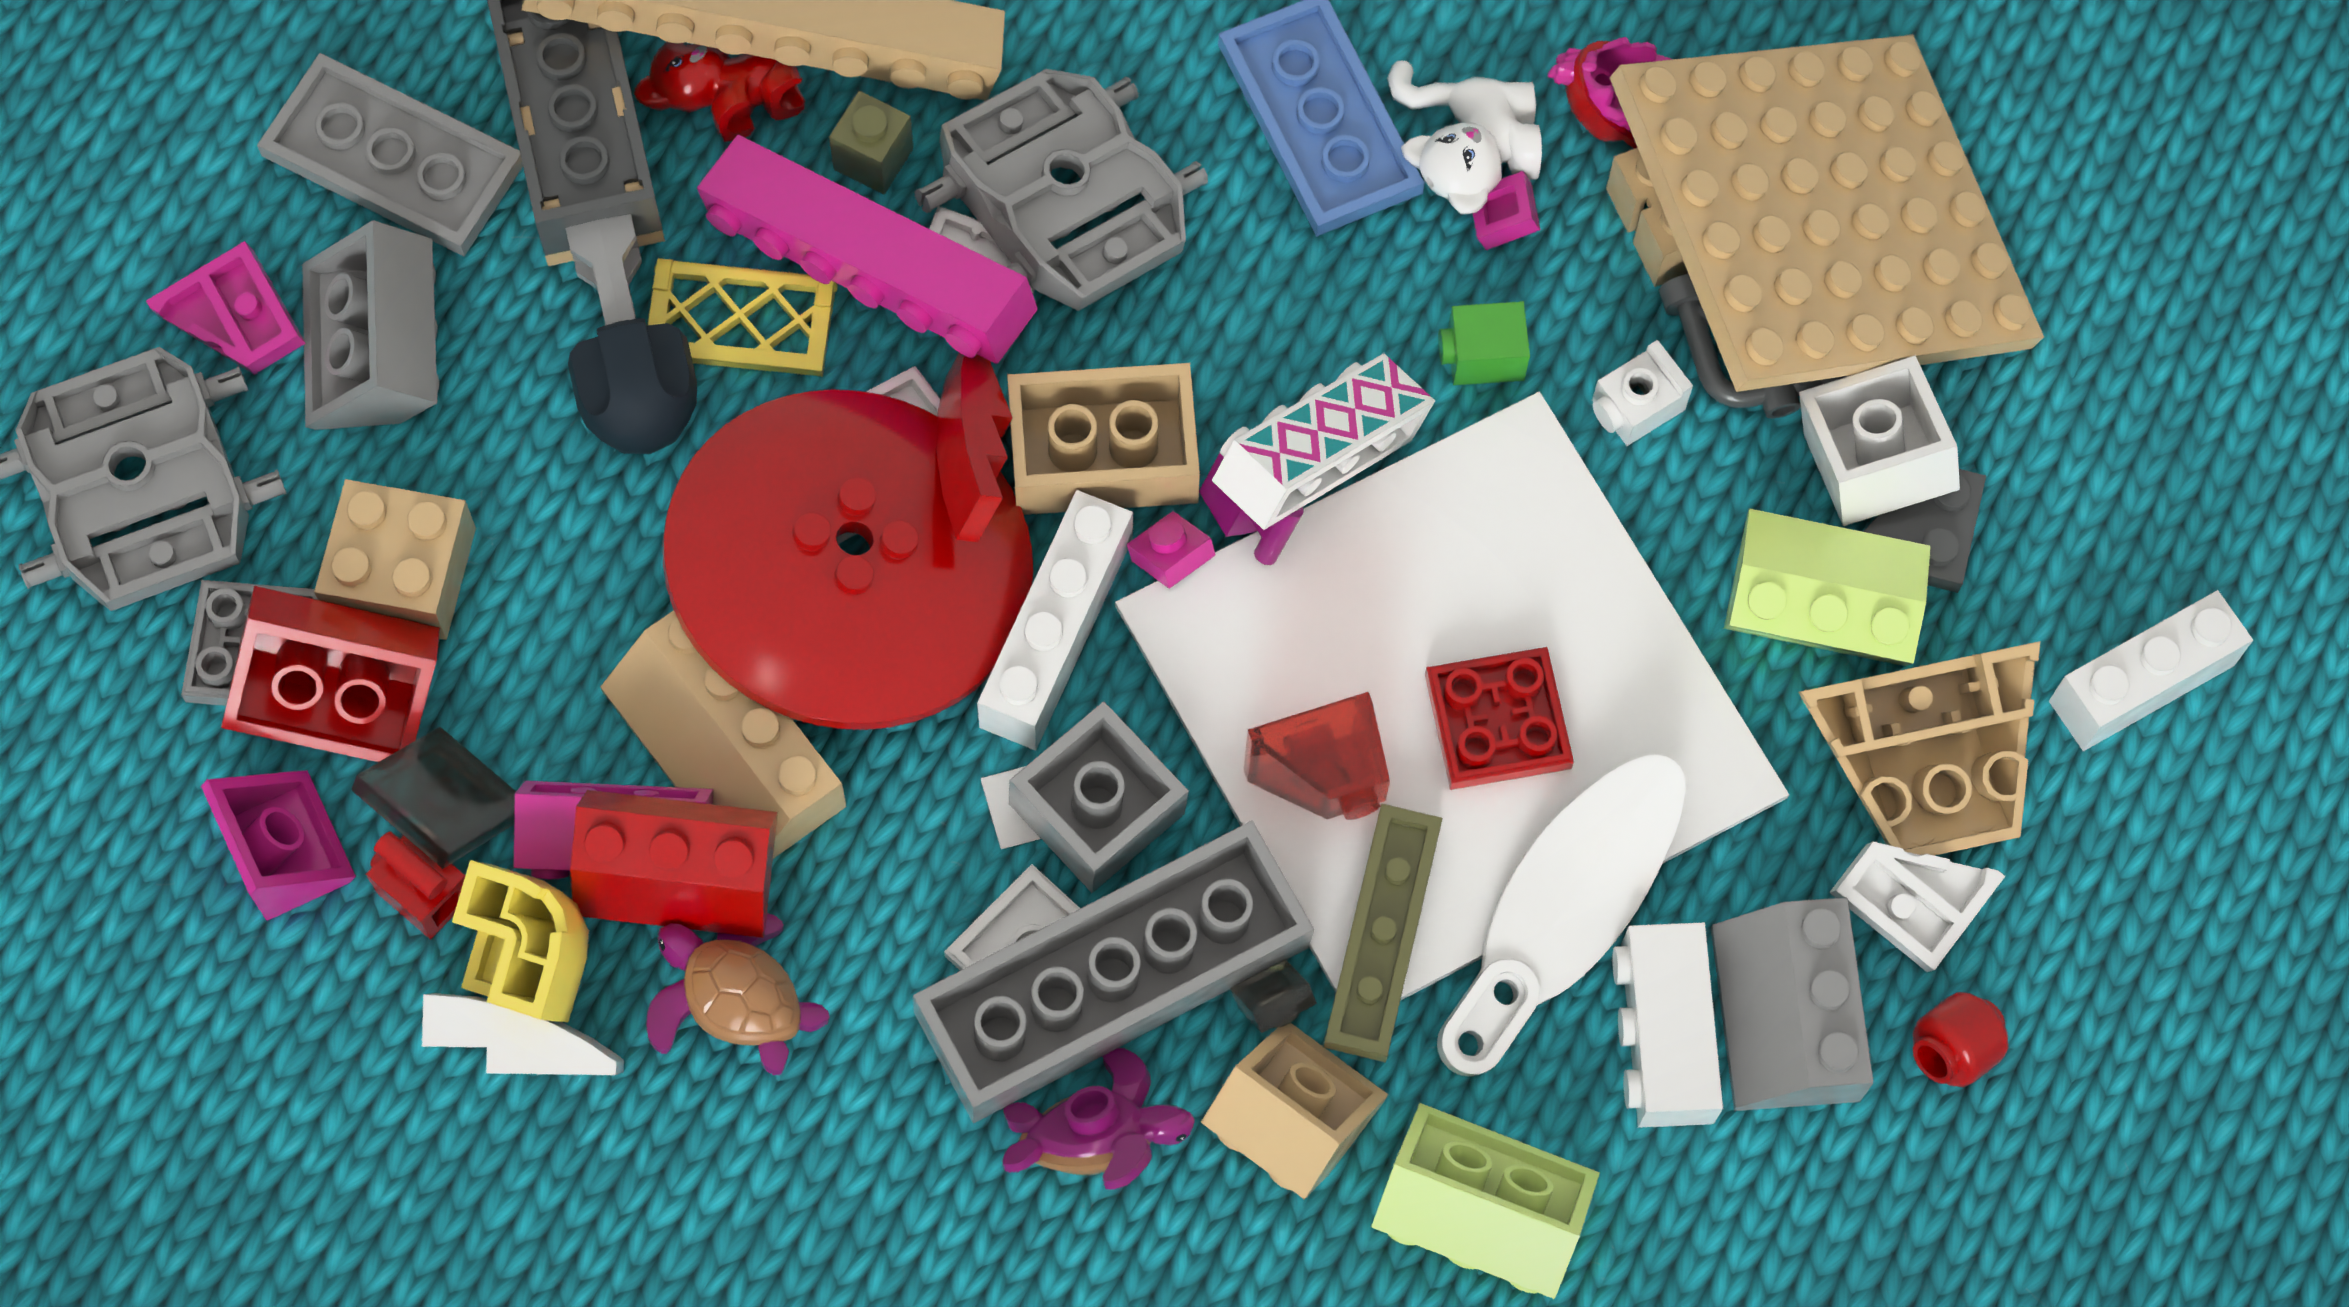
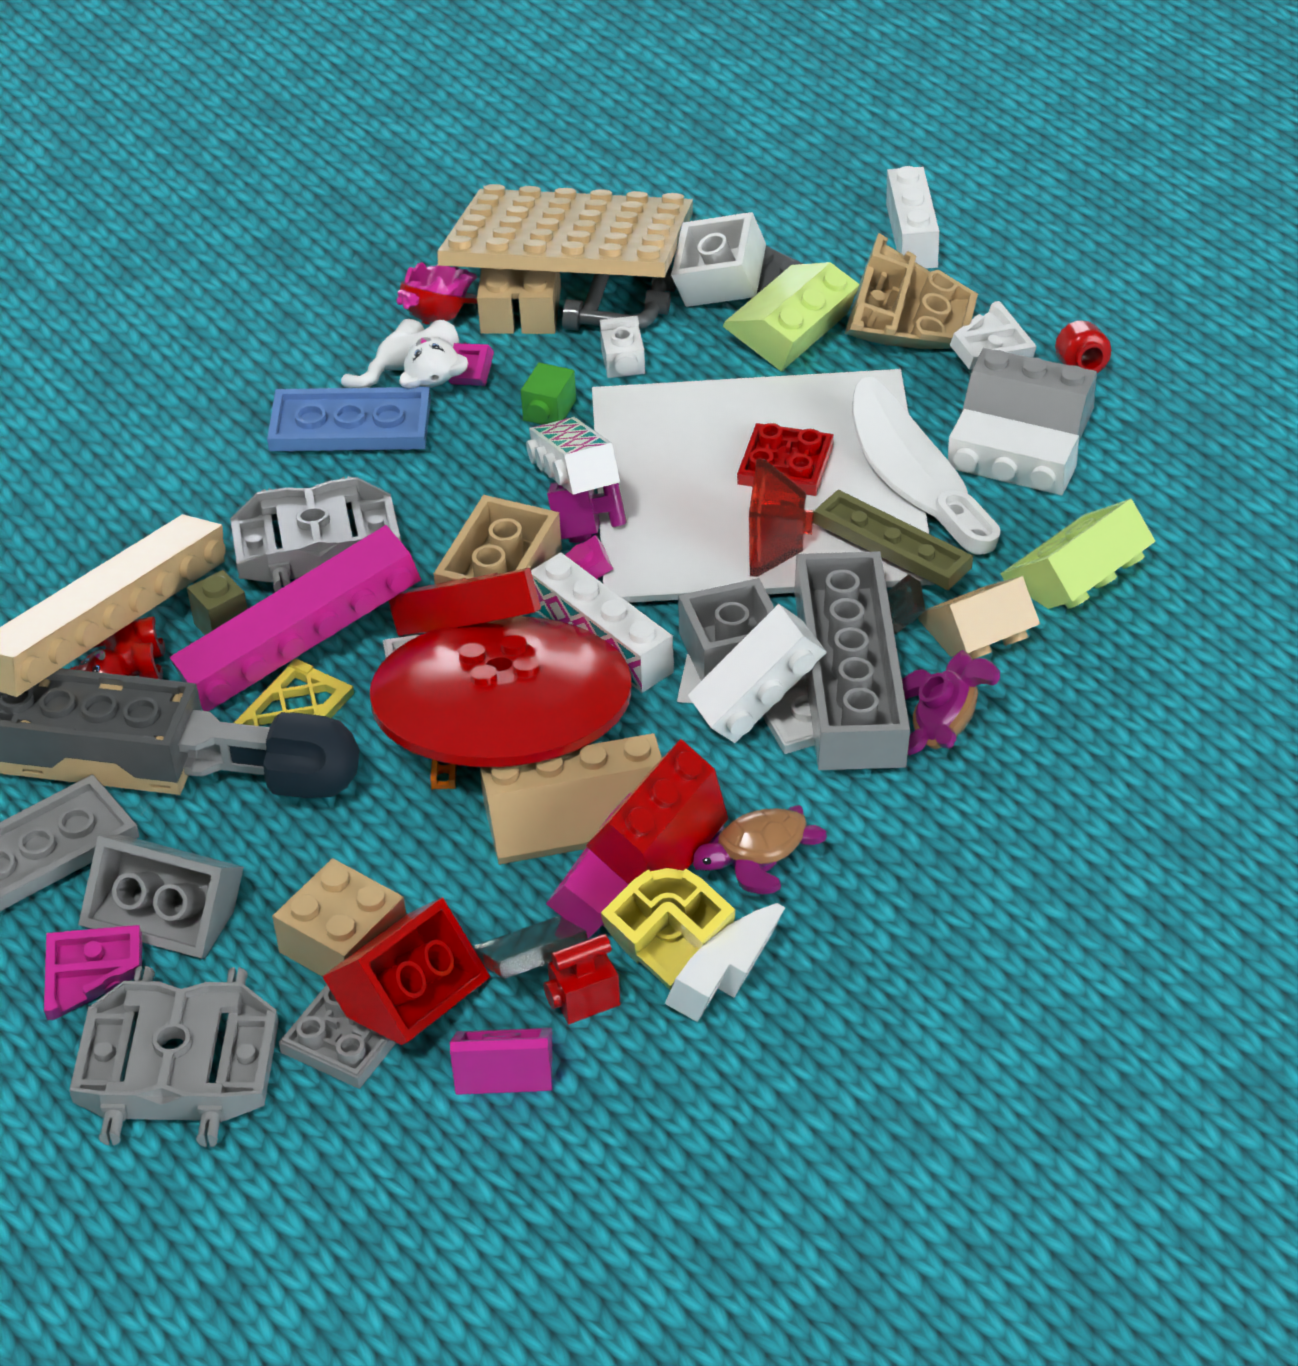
camera: 60 degrees left, 25 degrees down
(1002, 867) = (757, 673): none -> white brick

